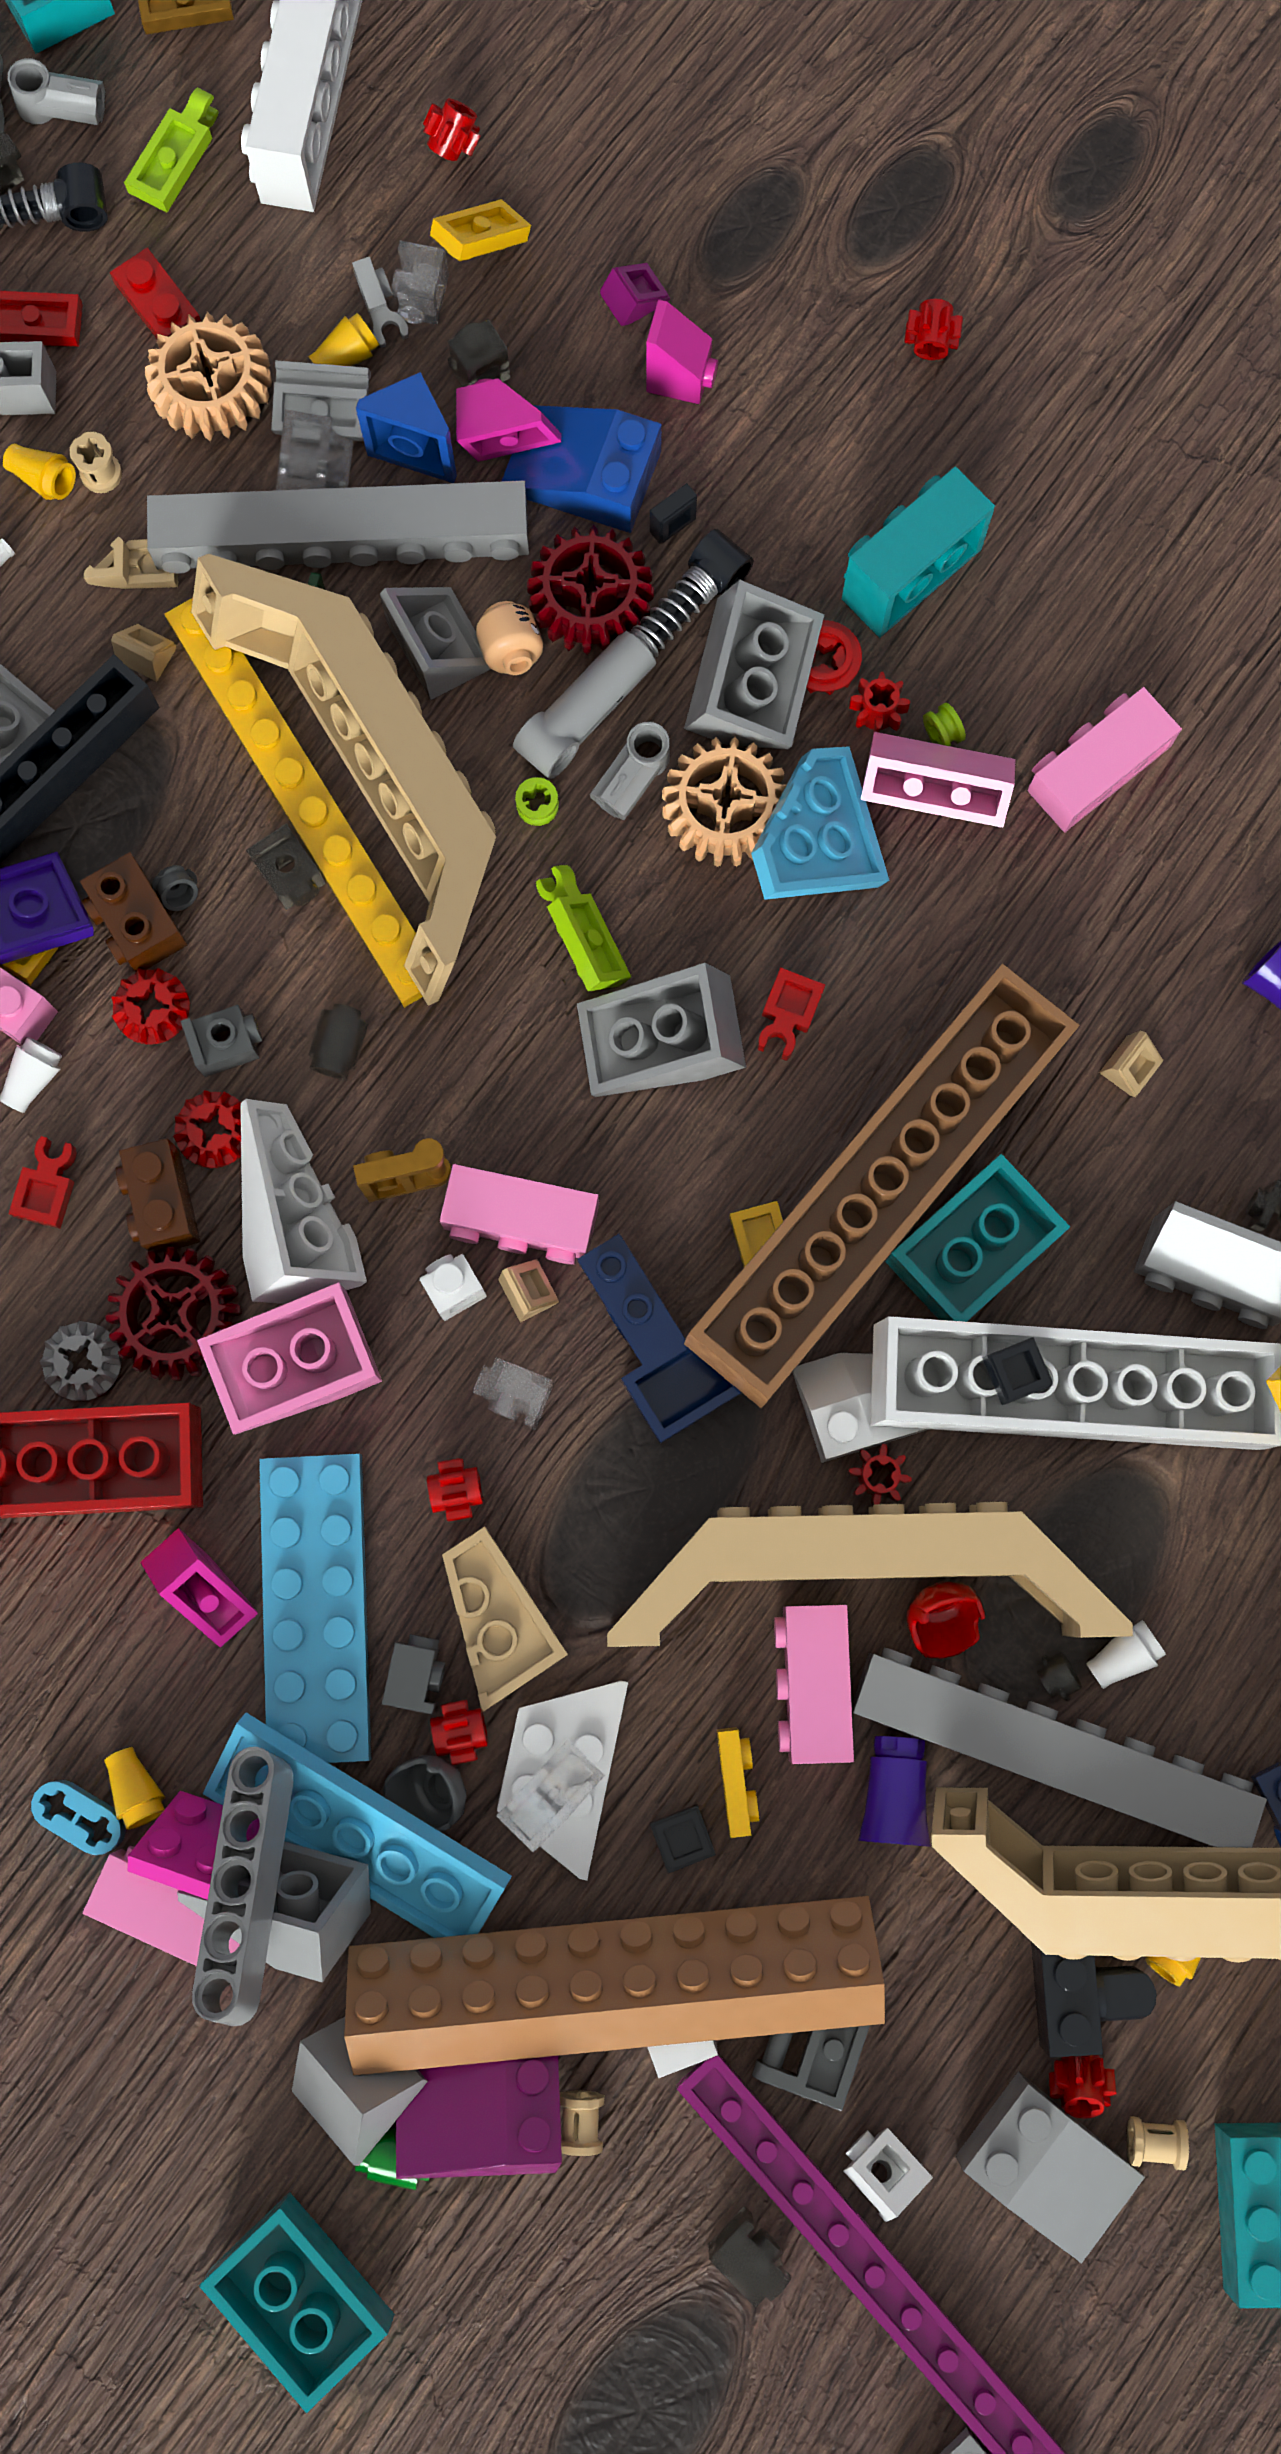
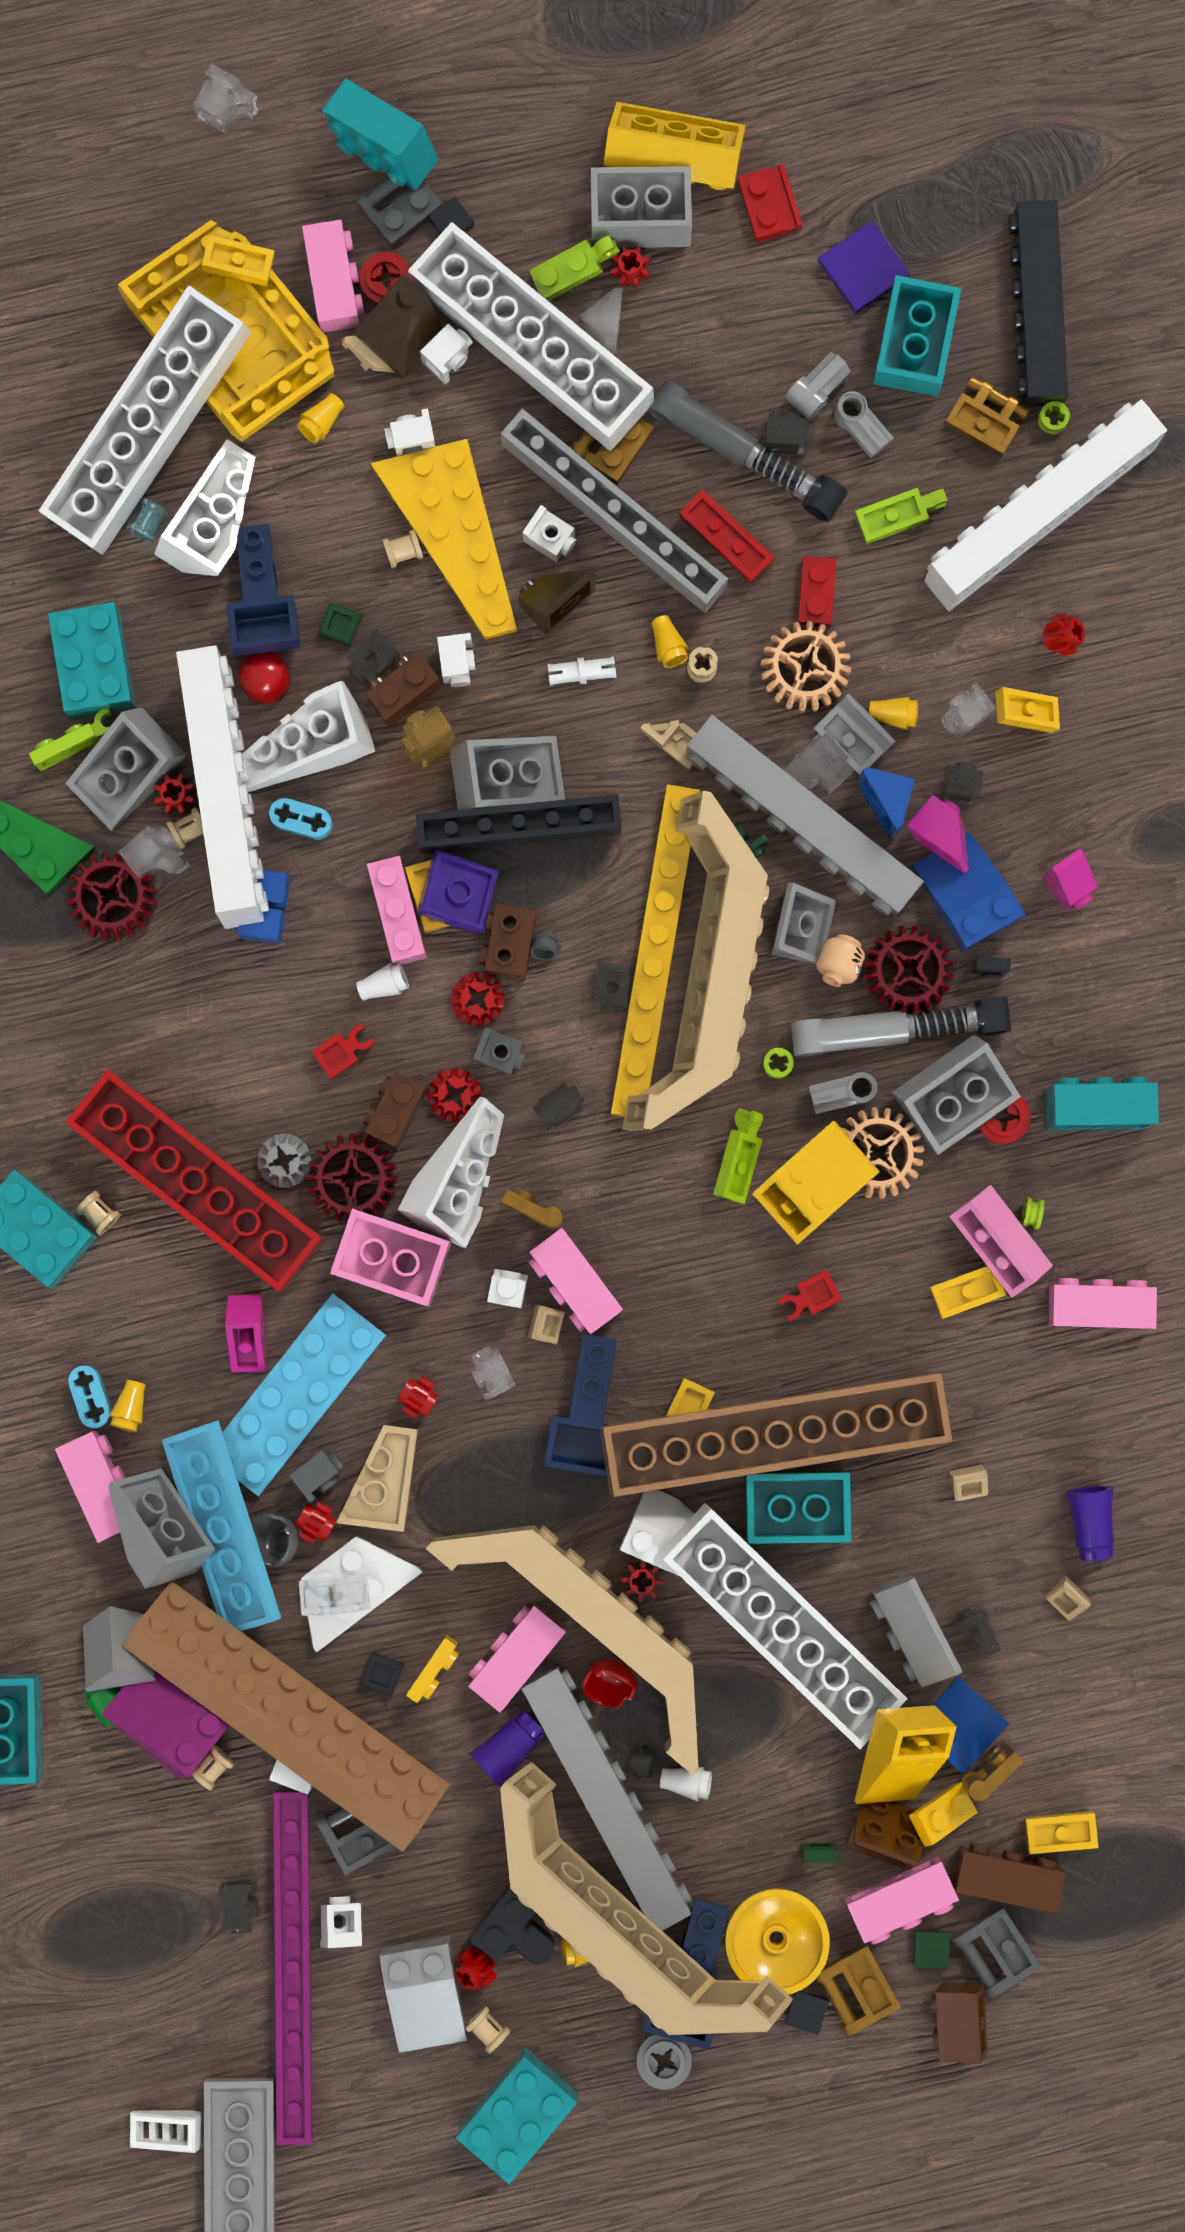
camera: 40 degrees right, 5 degrees up
(143, 650) = (639, 794): tan slope -> none
(182, 1845) = (140, 1467): dark pink plate -> none
(255, 1908) = (141, 1525): light grey beam -> none
(374, 290) = (939, 694): light grey plate -> none
(632, 292) = (1084, 815): magenta slope -> none
(662, 1032) = (733, 1249): light grey slope -> none
(687, 878) = (815, 1182): none -> yellow slope
(820, 832) = (911, 1215): medium azure plate -> none
(880, 716) = (1014, 1163): red gear -> none
(949, 865) = (966, 1292): none -> yellow plate
(1017, 1371) = (752, 1593): black tile -> none

